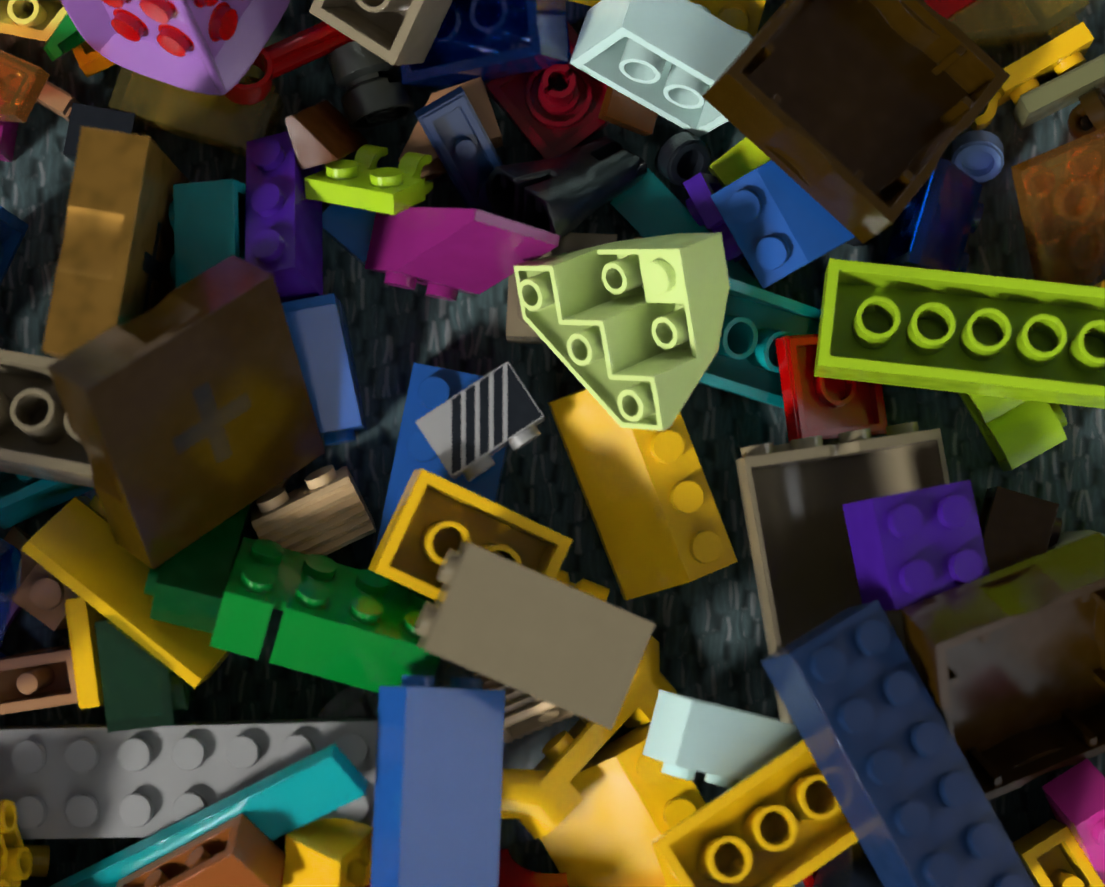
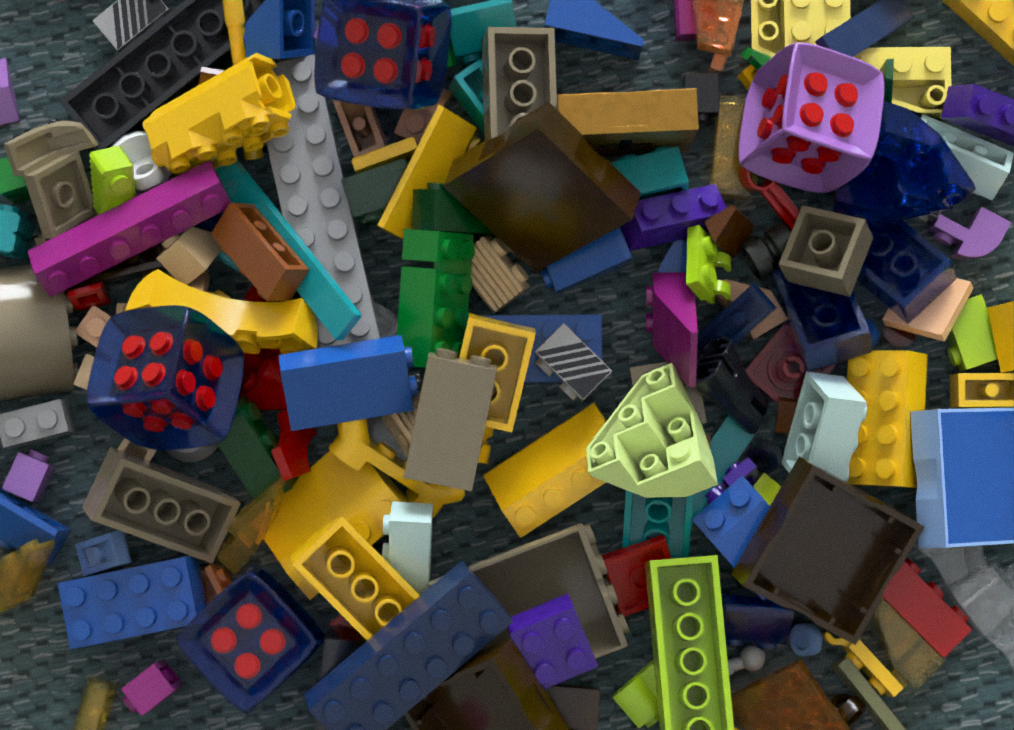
camera: 75 degrees right, 0 degrees up
(990, 246) = (750, 658): none -> light grey arm

